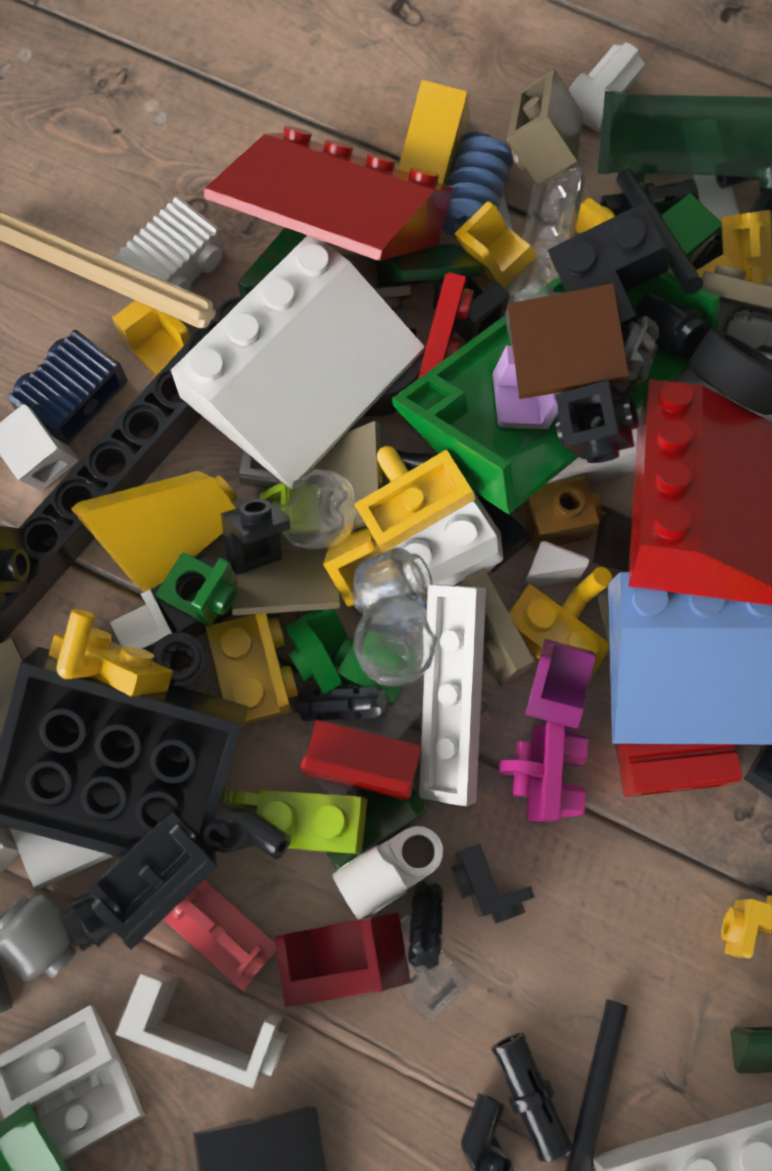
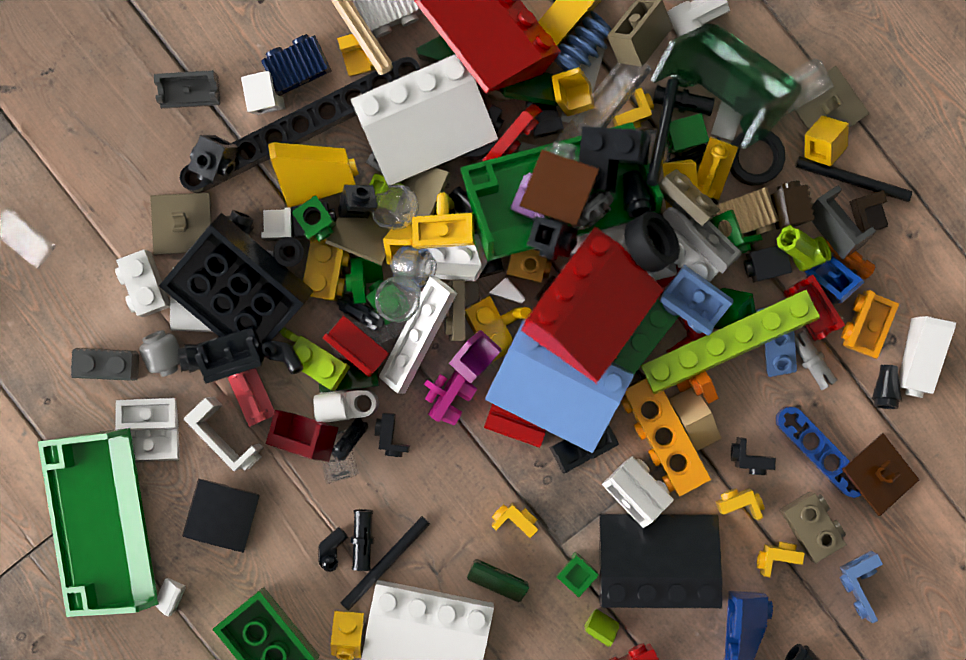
camera: 30 degrees right, 15 degrees up
(91, 653) = (248, 234): yellow plate -> none

